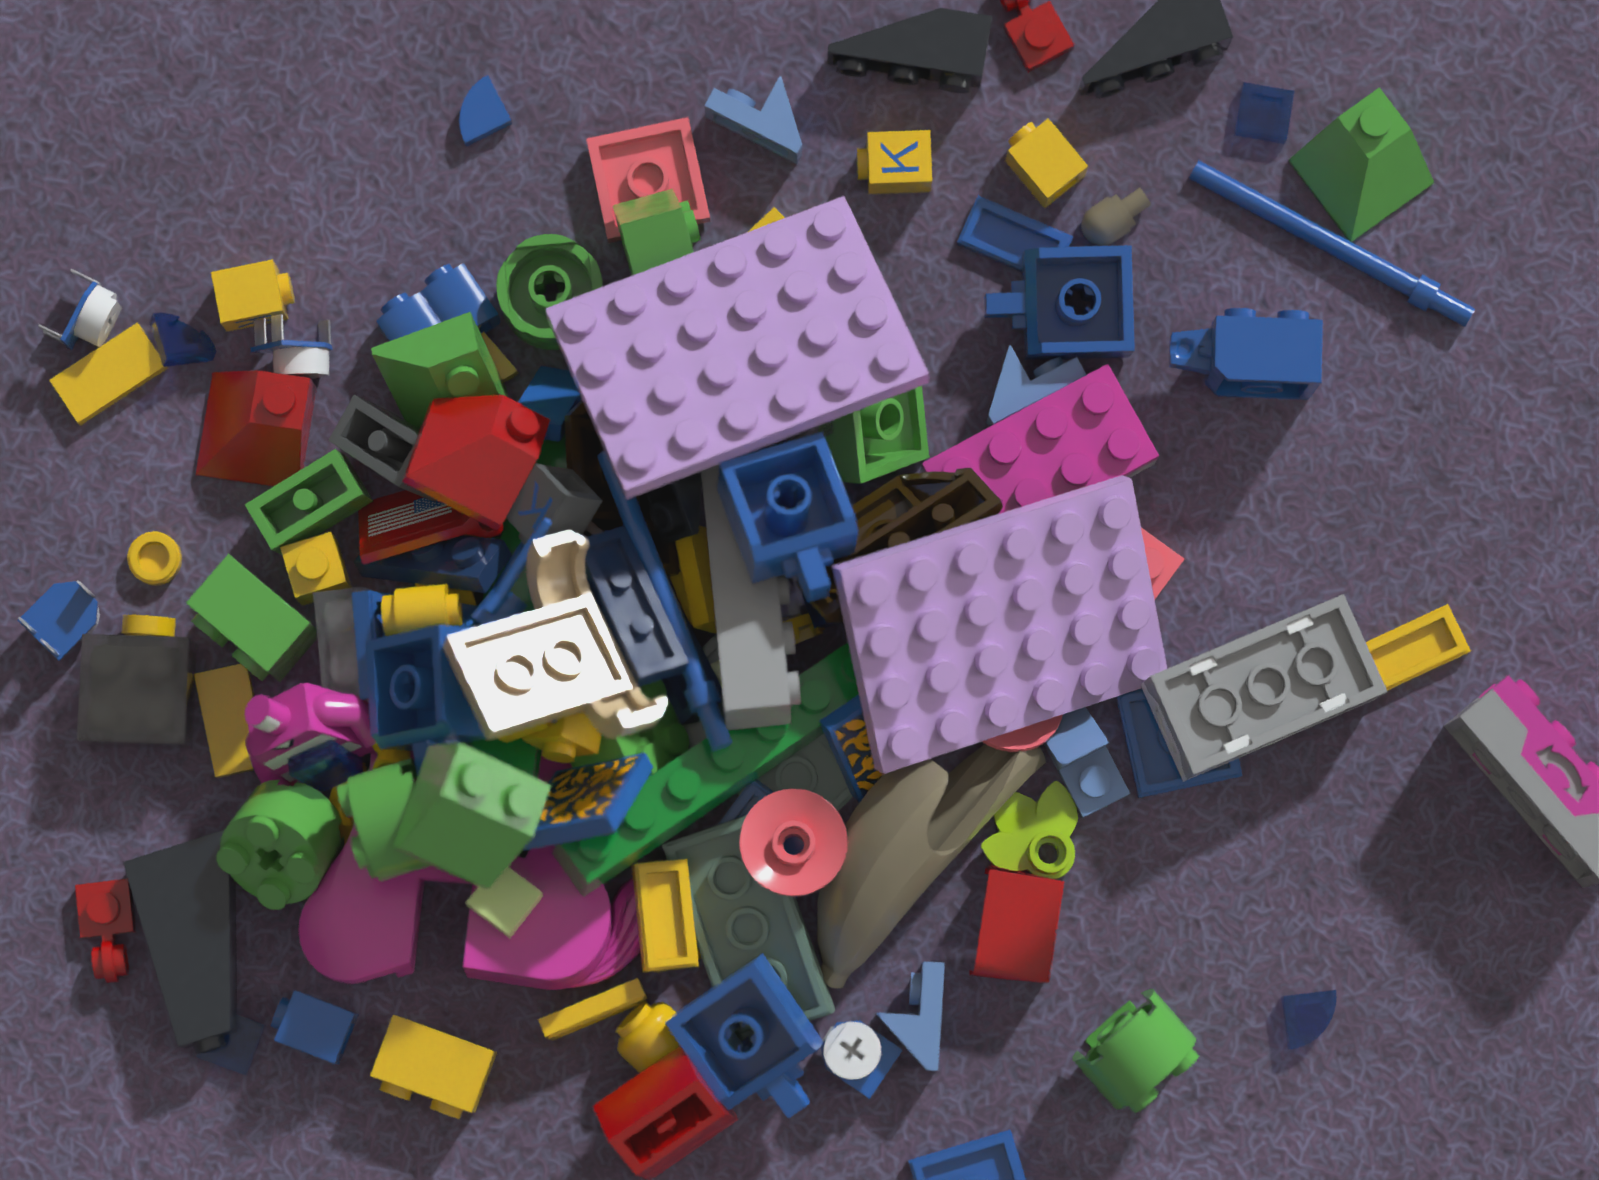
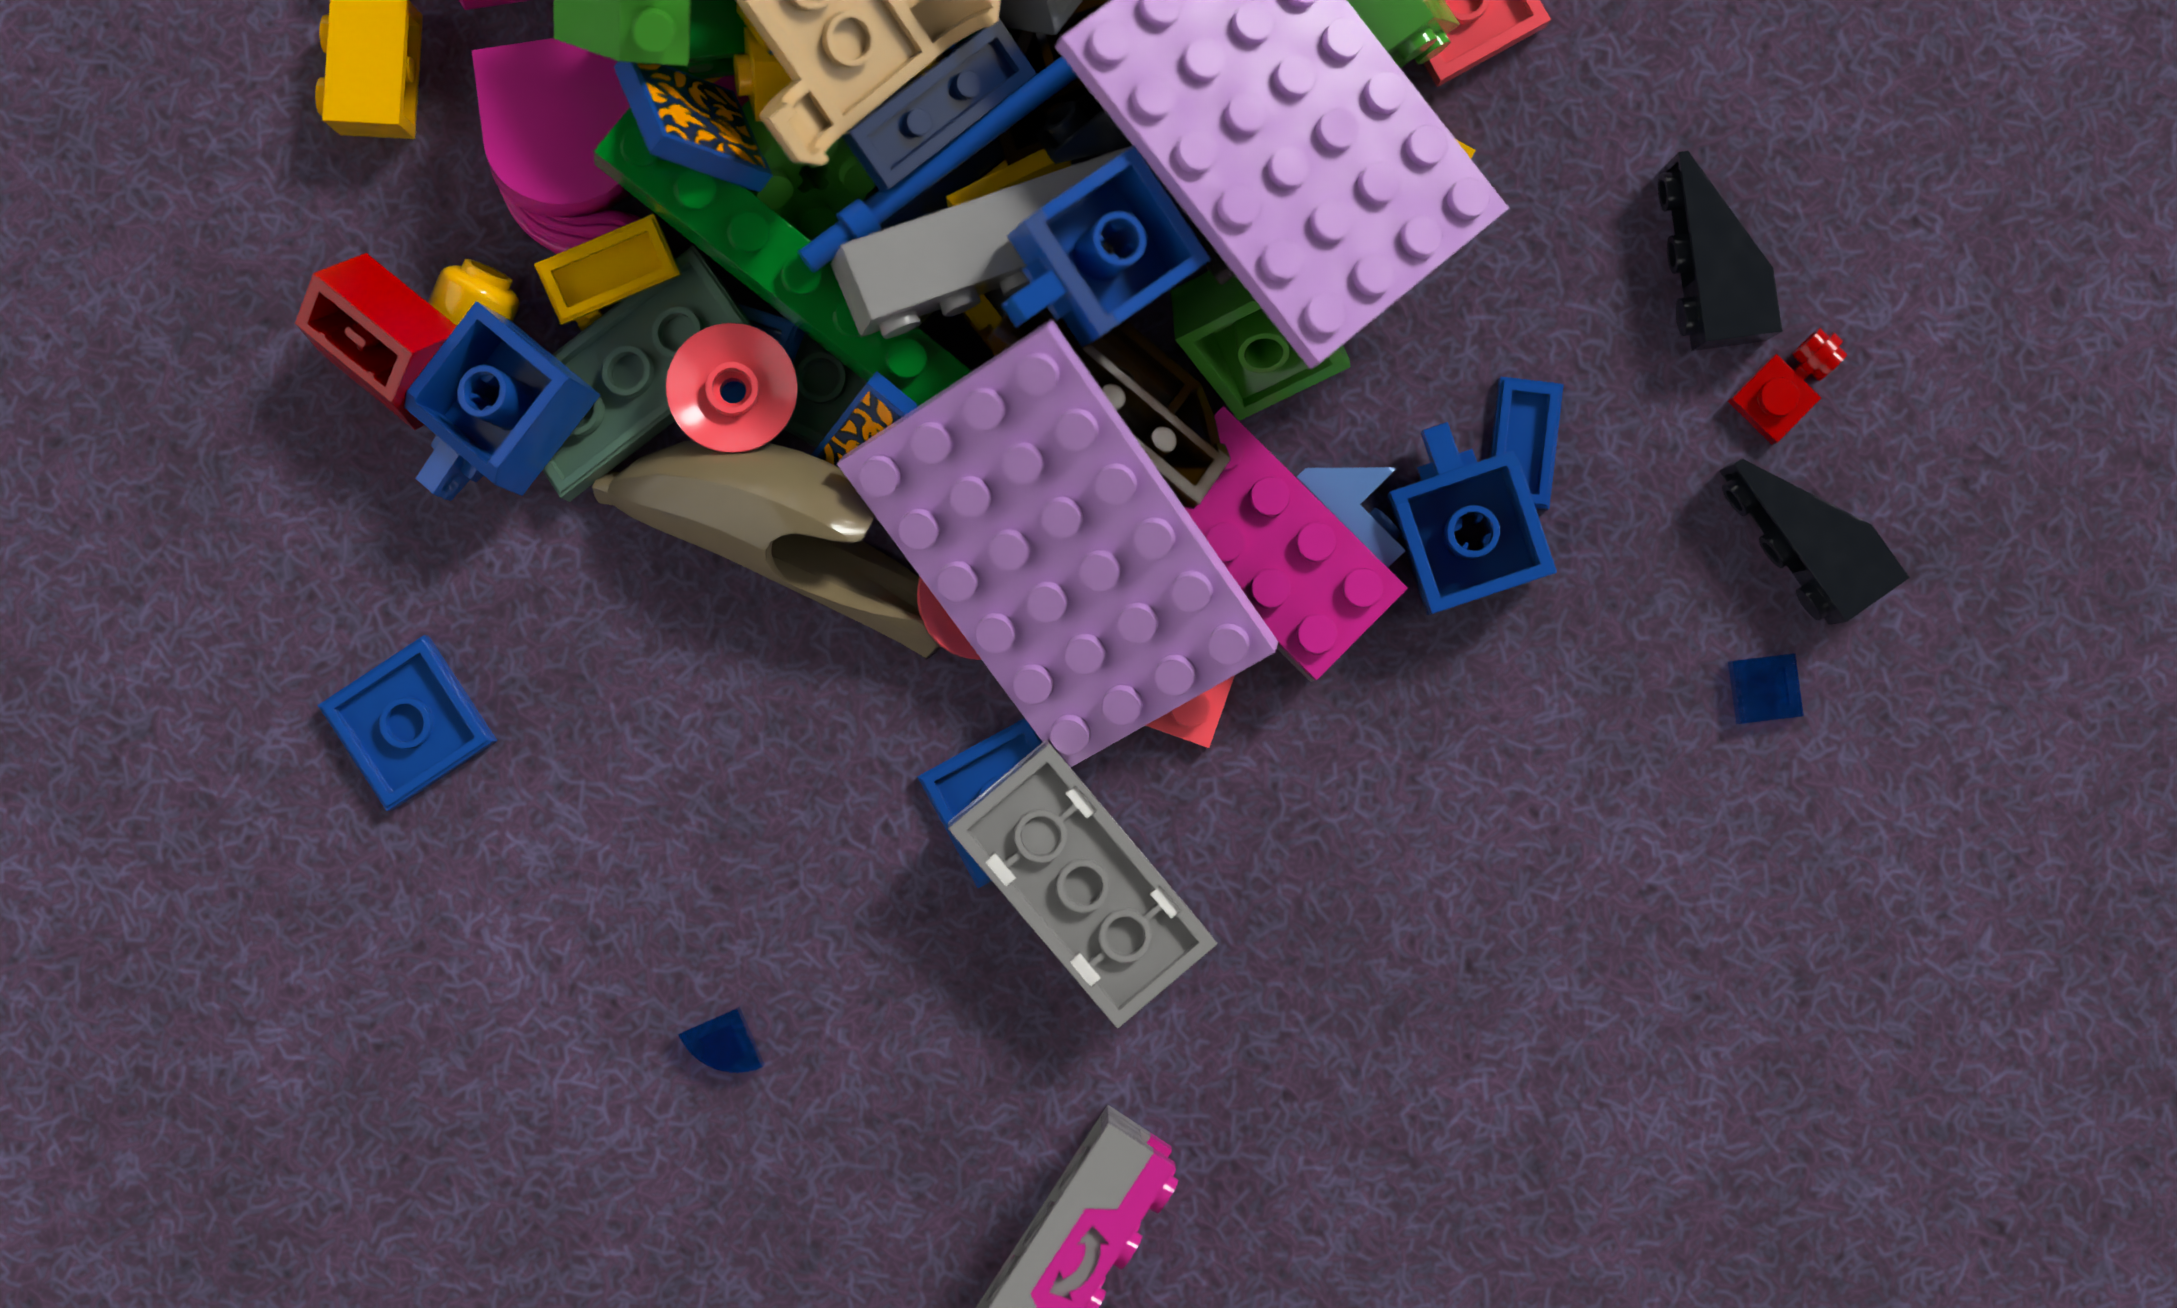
camera: 75 degrees right, 5 degrees up
(505, 902) = (561, 74): yellowish green tile -> none
(593, 1010) = (485, 226): yellow tile -> none
(771, 127) = (1570, 116): medium blue slope -> none
(858, 1055) = (521, 541): white piece -> none
(896, 162) = (1573, 276): yellow brick -> none
(921, 1032) = (570, 603): medium blue slope -> none
(1018, 926) = (721, 678): red piece -> none
(1030, 824) = (845, 658): lime plate -> none
(1044, 161) = (1627, 448): yellow brick -> none
(1085, 763) = (937, 703): medium blue slope -> none
(1113, 217) = (1585, 548): dark tan cylinder -> none
(1137, 1052) = (614, 858): bright green brick -> none
(1254, 354) = (1473, 756): blue hinge -> none
(1363, 165) = (1740, 822): bright green slope -> none
(1418, 647) = (1187, 1046): yellow tile -> none
(1421, 292) = (1609, 933): blue bar -> none

